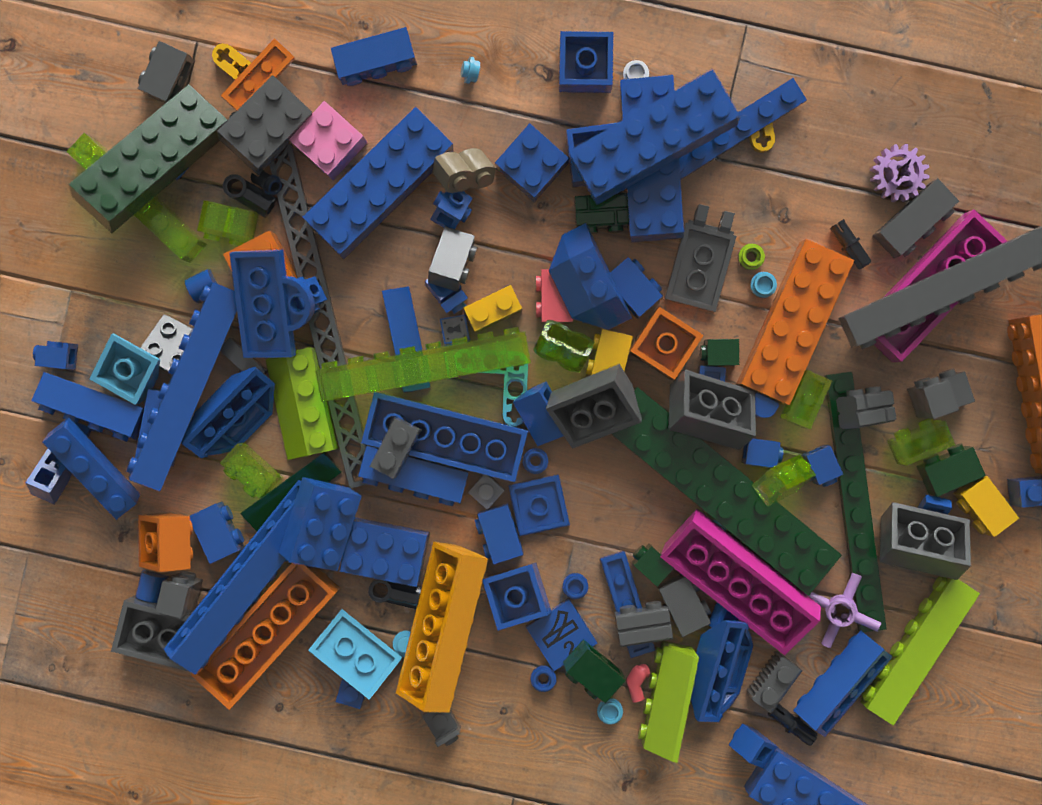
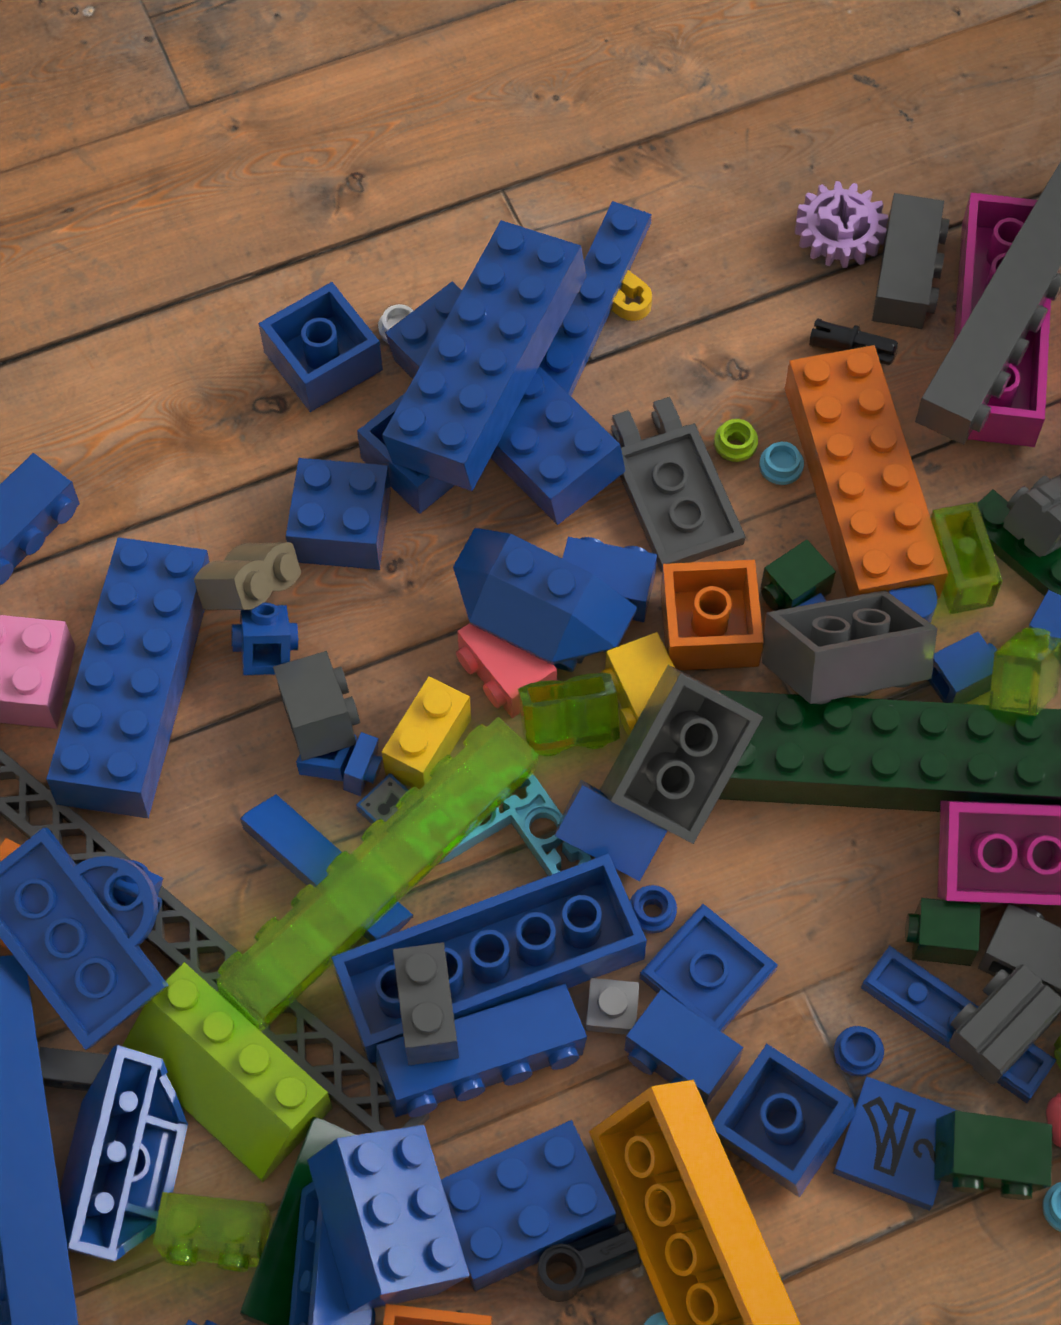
camera: 35 degrees left, 25 degrees down
(470, 70) = (164, 457): medium azure plate -> none
(543, 686) = (937, 1222): blue plate -> none
(608, 214) = (496, 504): dark green brick -> none

